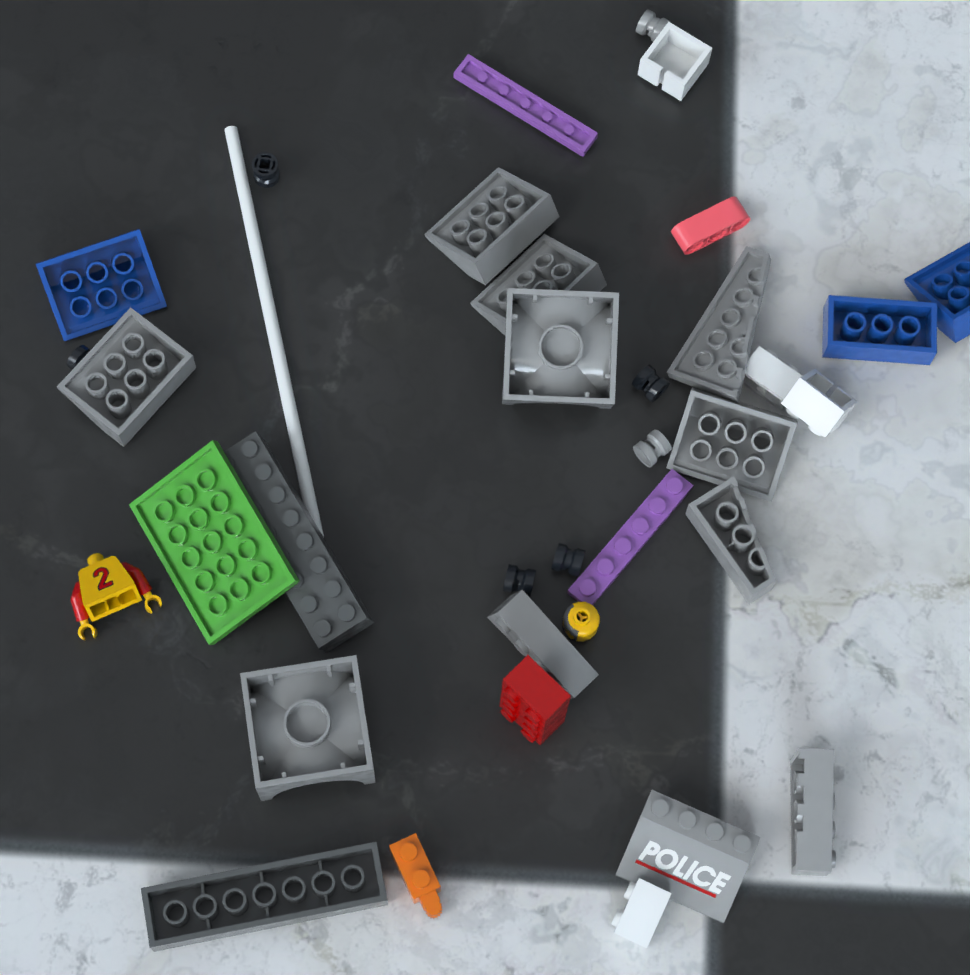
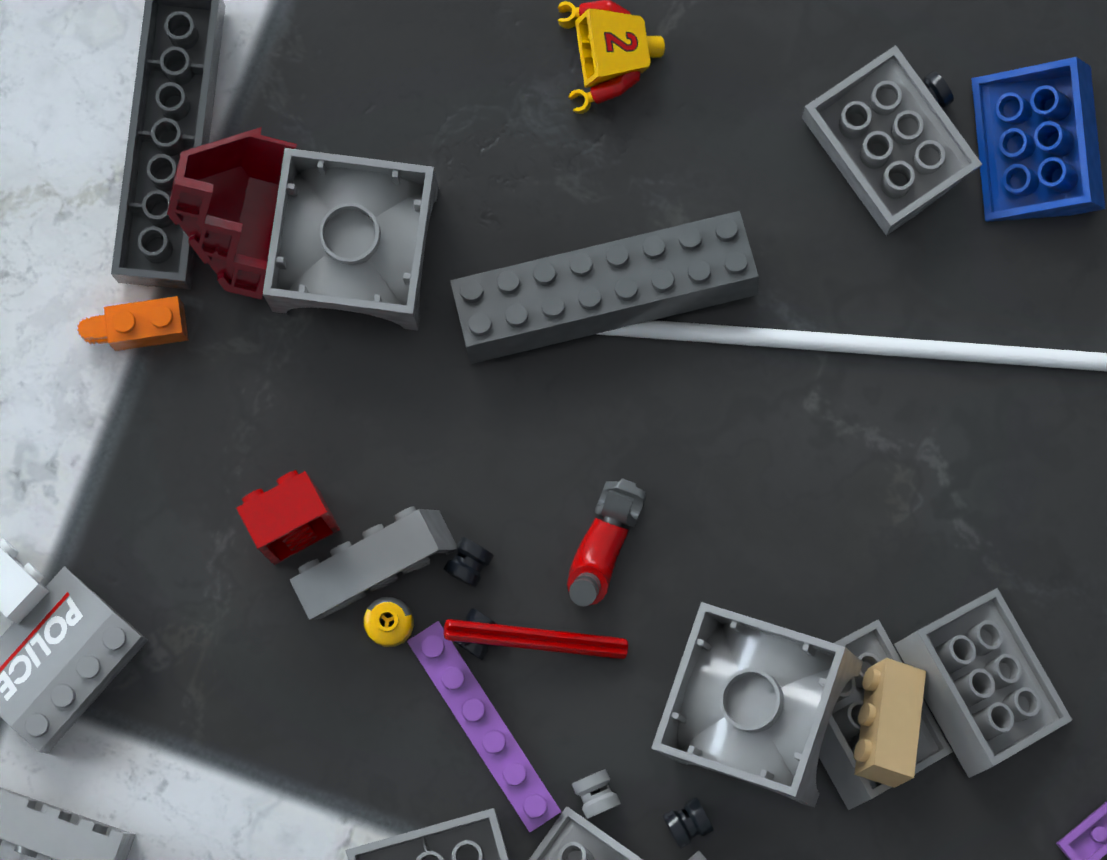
camera: 115 degrees right, 10 degrees up
(213, 542) = (629, 189): bright green plate -> none
(308, 828) = (228, 204): none -> dark red panel
(484, 495) = (601, 545): none -> piece
(543, 265) = (889, 722): none -> tan brick
(560, 516) = (535, 639): none -> red axle

